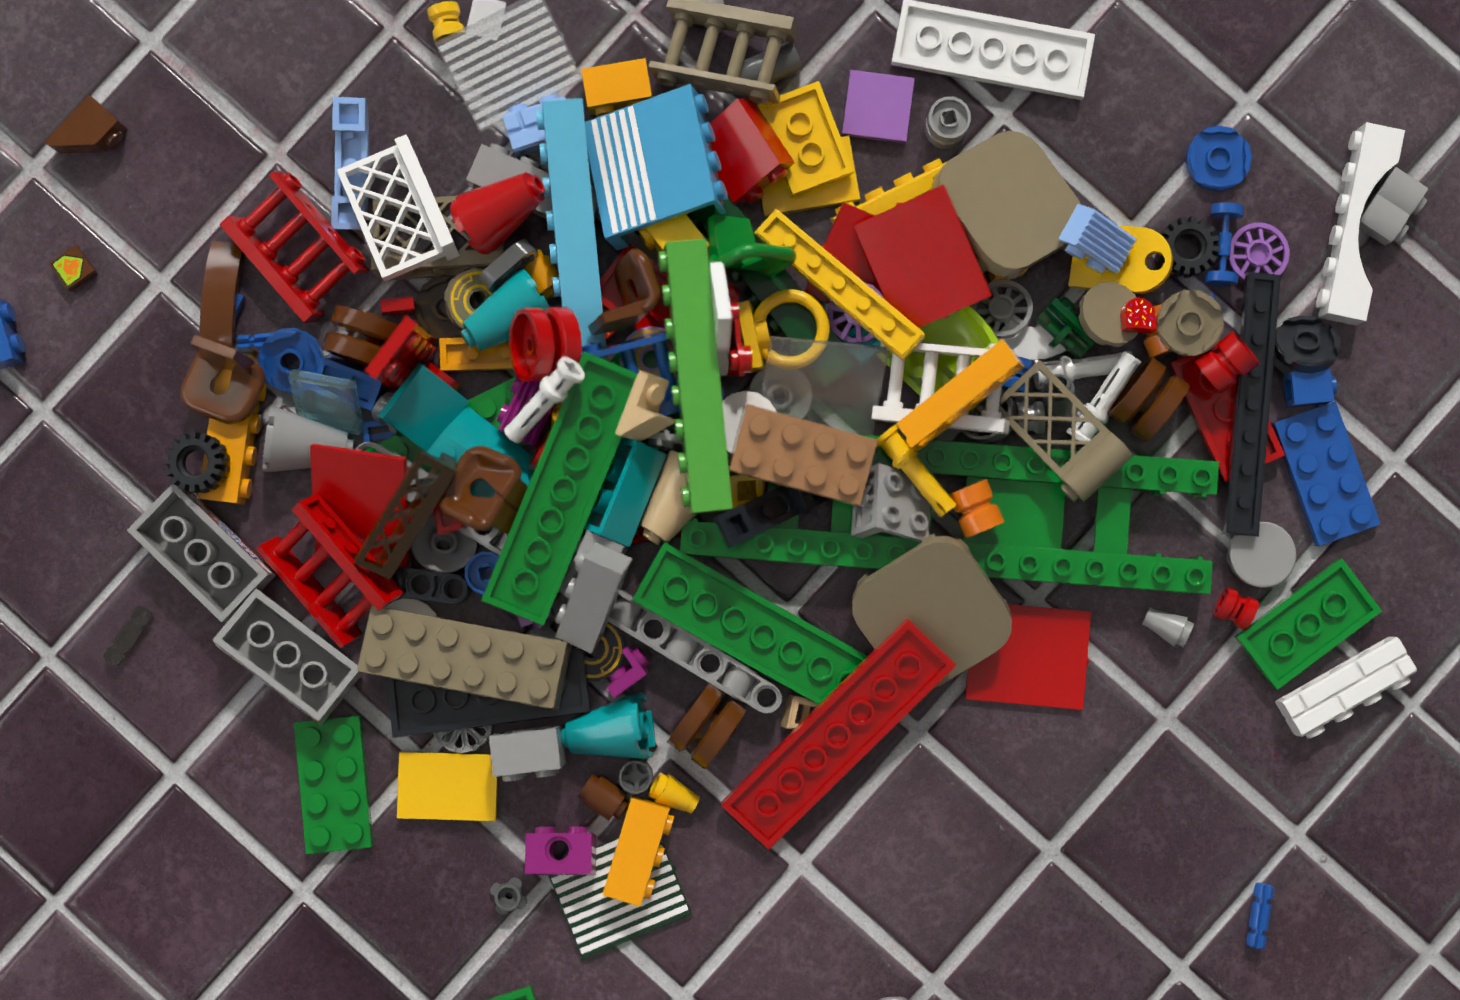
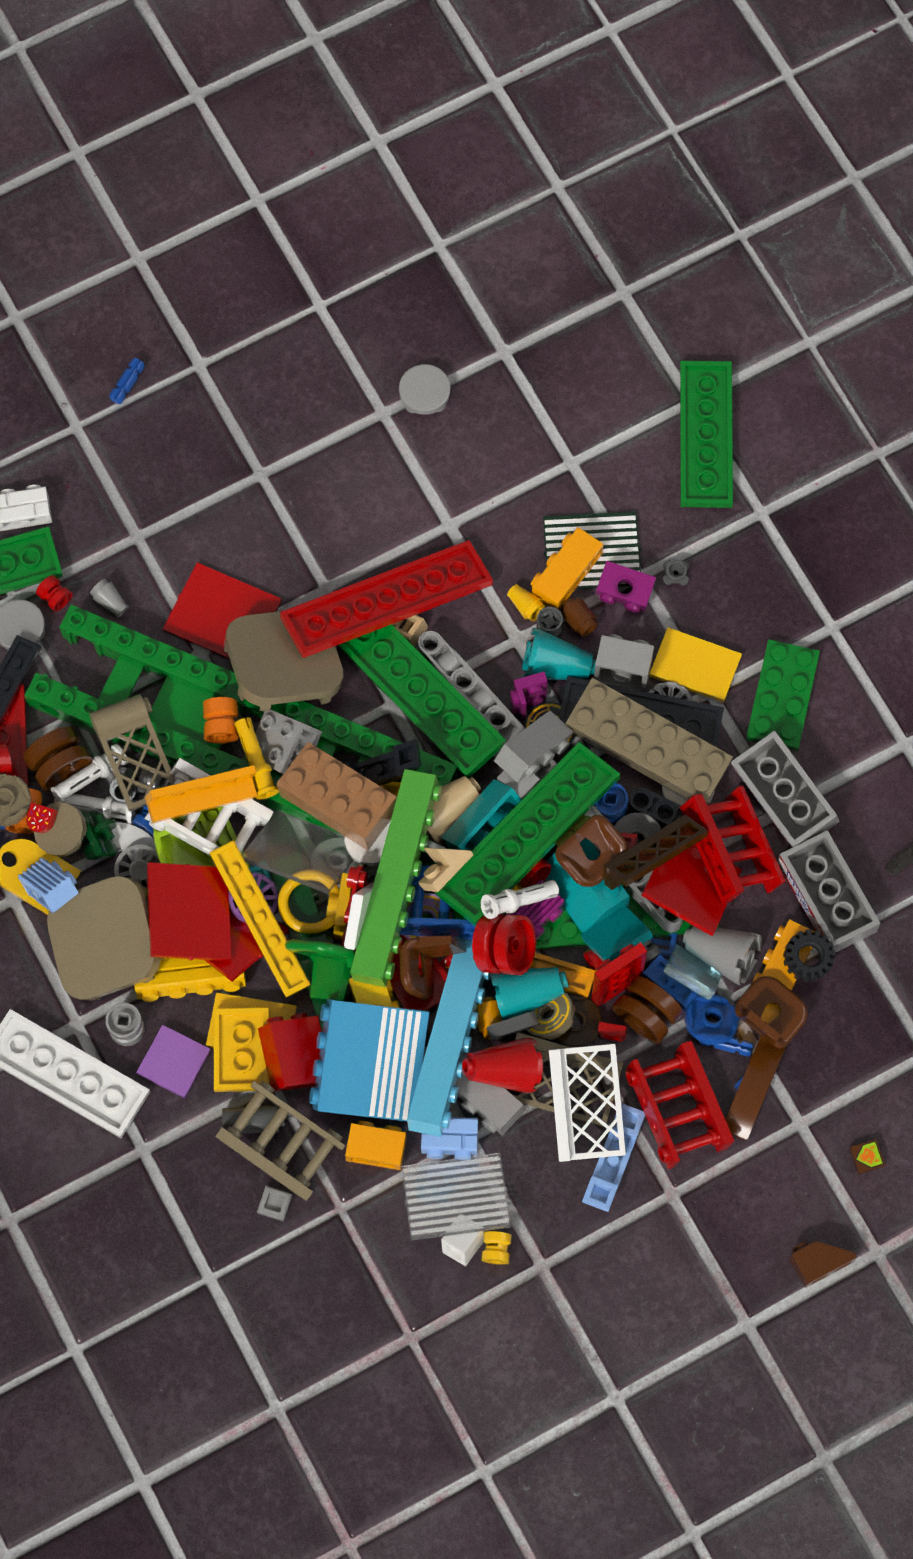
camera: 165 degrees left, 15 degrees down
(707, 726) = (482, 636): reddish brown wheel -> none

